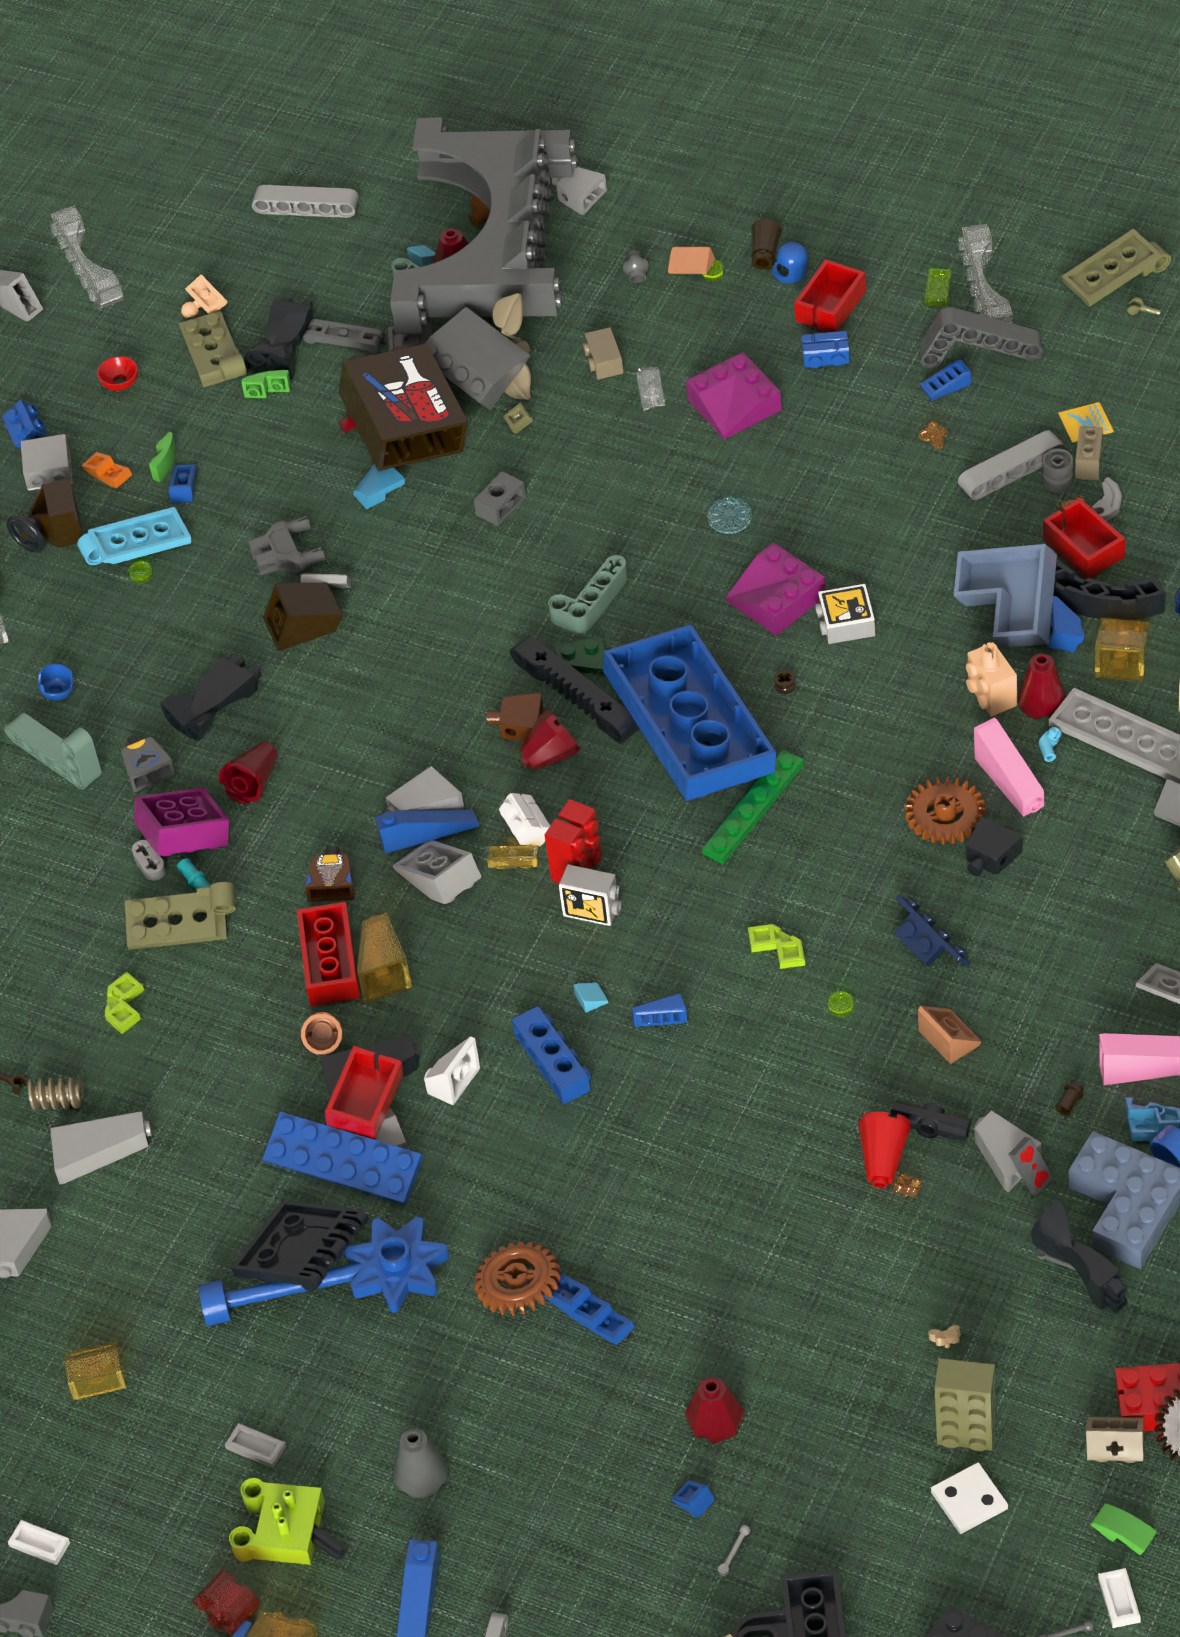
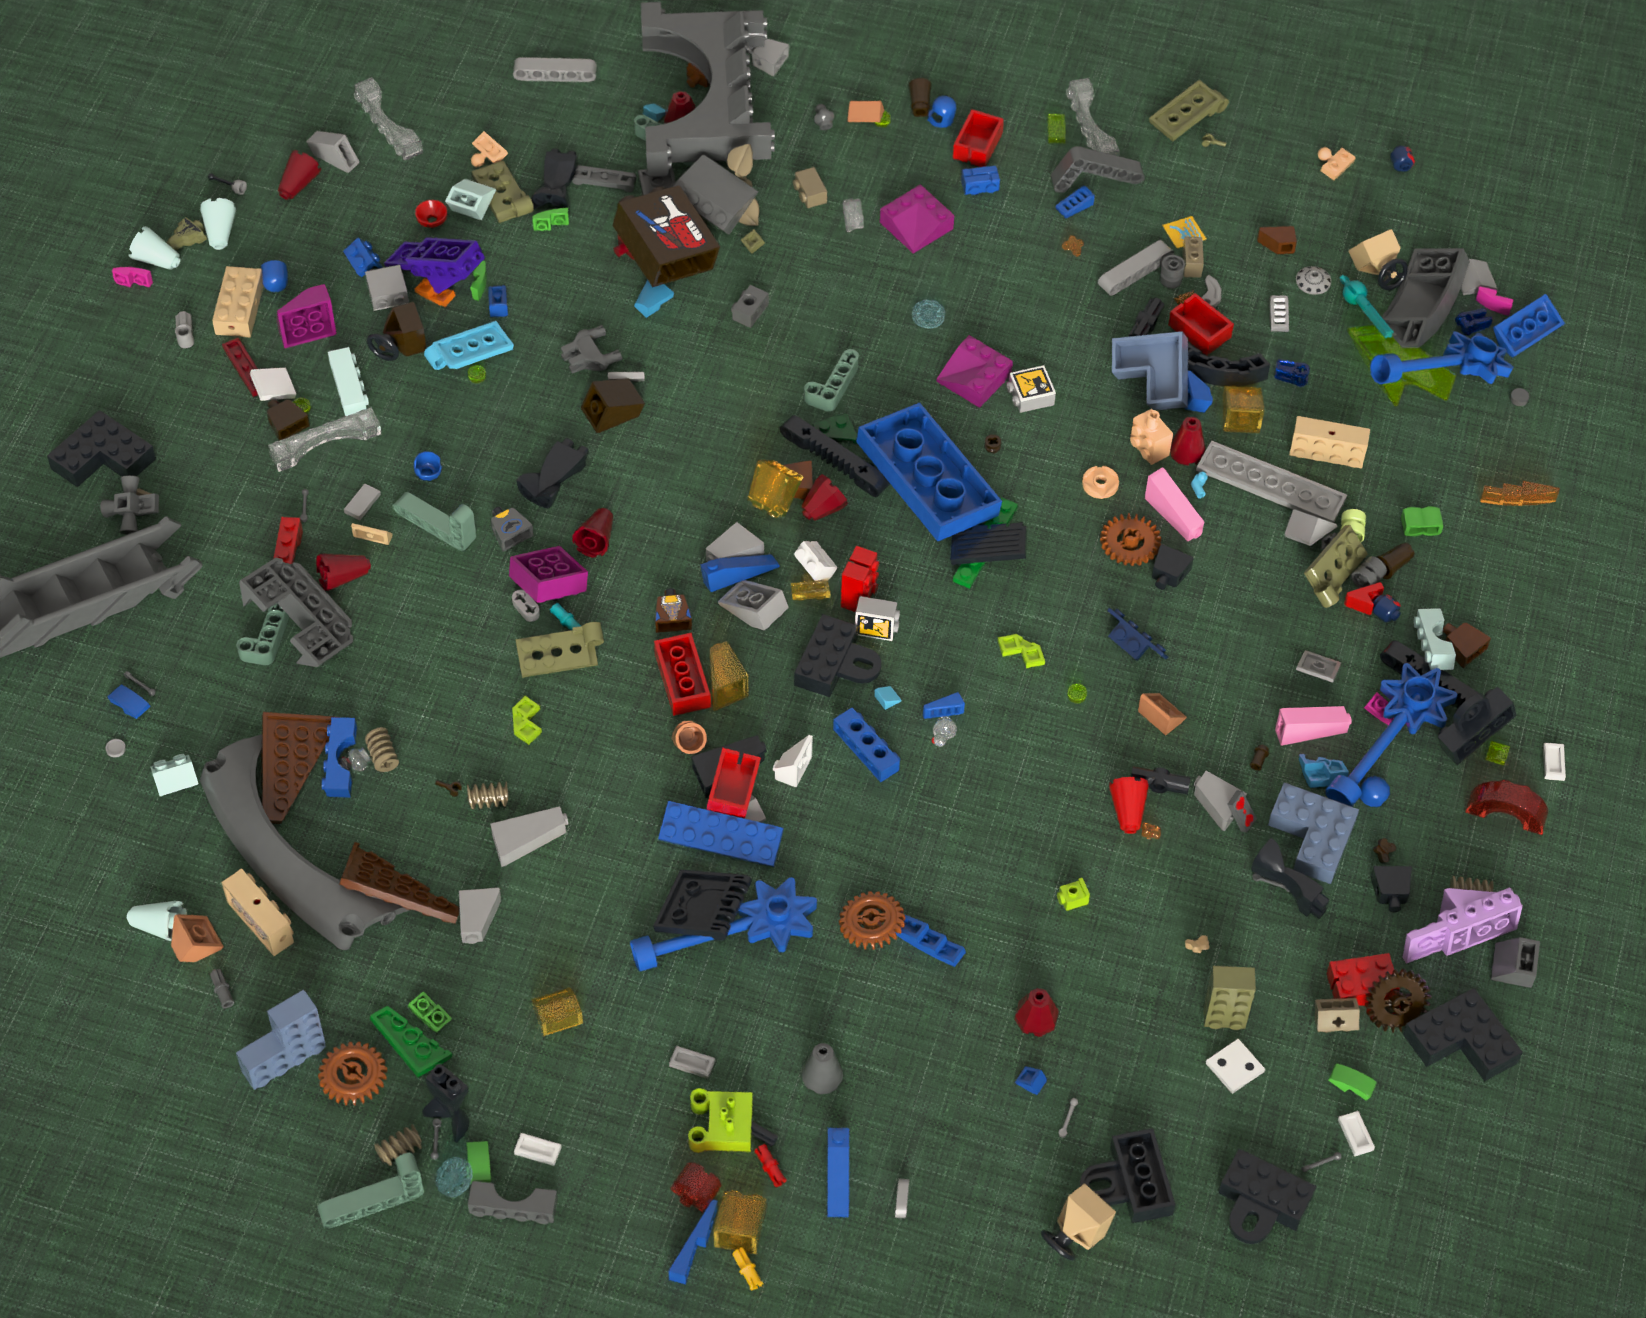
camera: 15 degrees left, 5 degrees up
(112, 429) = (438, 259): none -> dark purple wedge
(168, 355) = (470, 198): none -> light aqua slope
(331, 1583) = (770, 1165): none -> red pin
(484, 724) = (773, 487): none -> clear yellow slope
(524, 941) = (833, 655): none -> black brick
(654, 1042) = (943, 730): none -> clear animal
(754, 807) = (988, 544): none -> black hinge
(789, 1262) = (1073, 895): none -> lime brick
(919, 746) = (1100, 490): none -> light nougat tile
(1016, 531) = (1148, 318): none -> black piece

